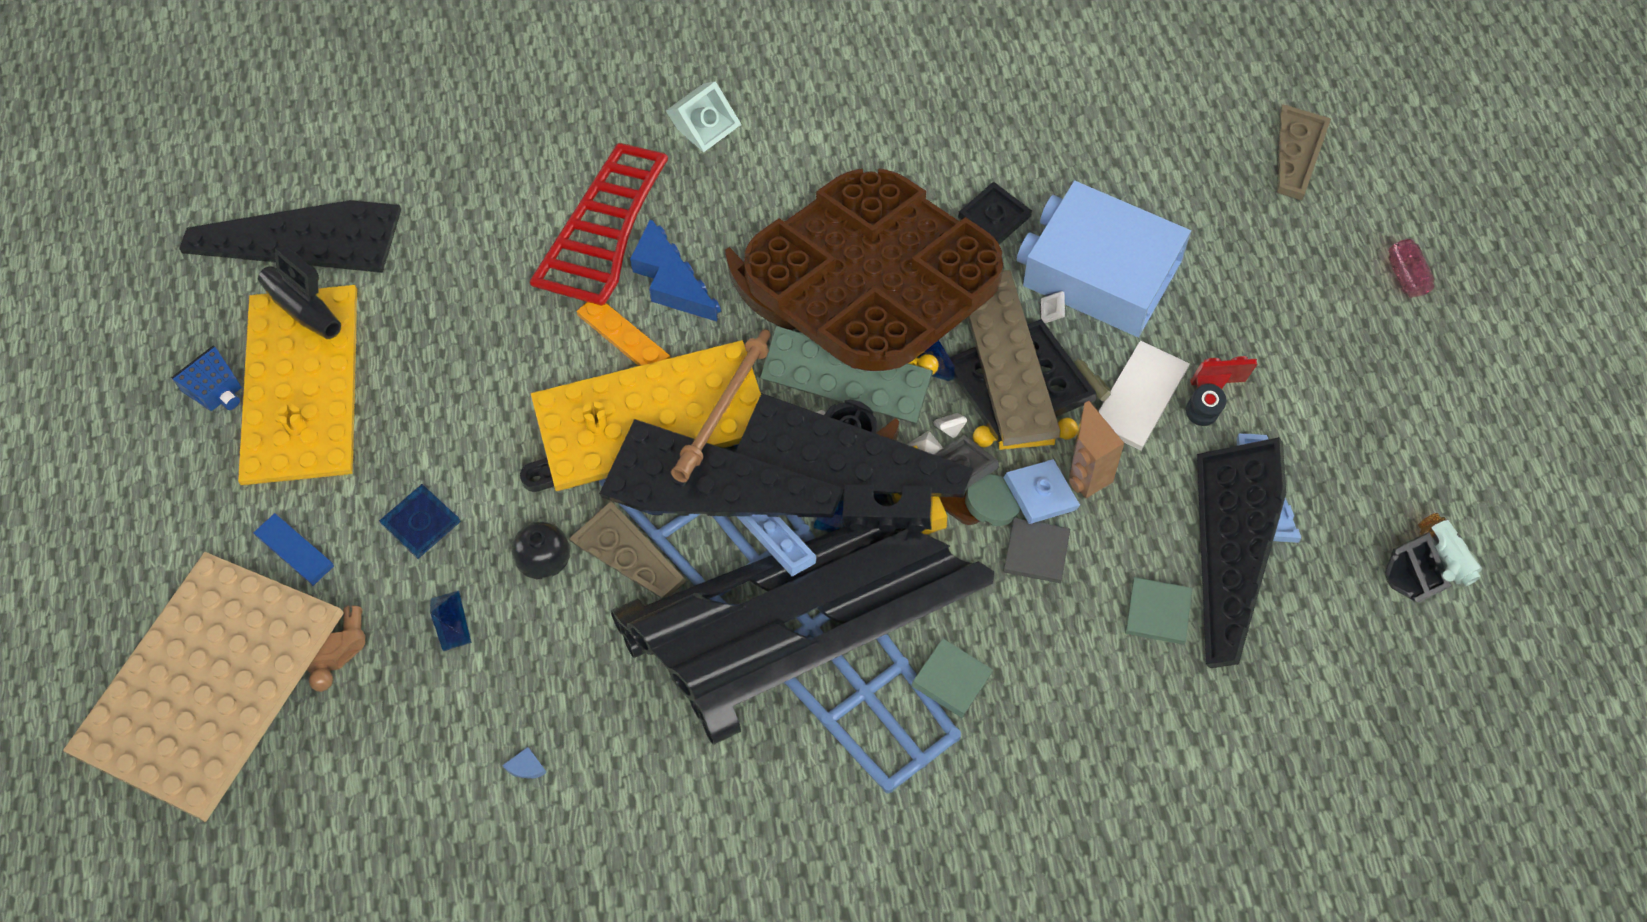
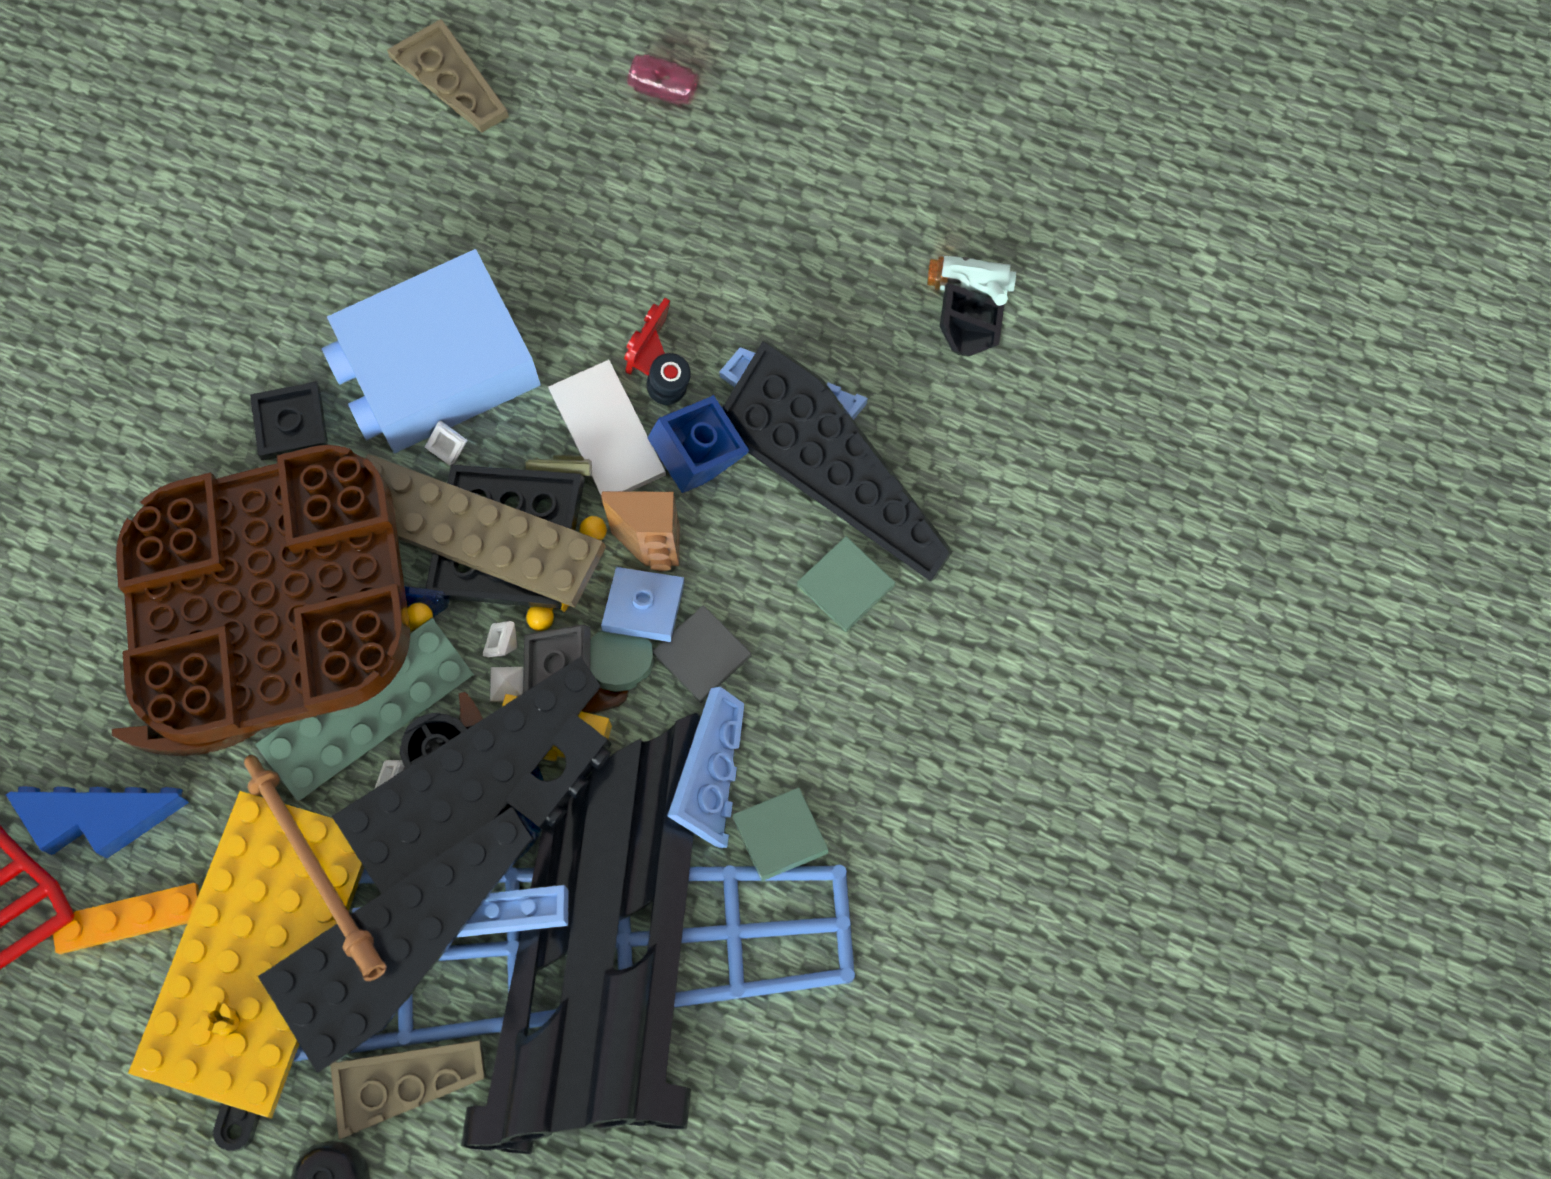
camera: 55 degrees left, 10 degrees up
(949, 606) = (705, 781): none -> light blue wing
(1177, 451) = (697, 443): none -> blue slope

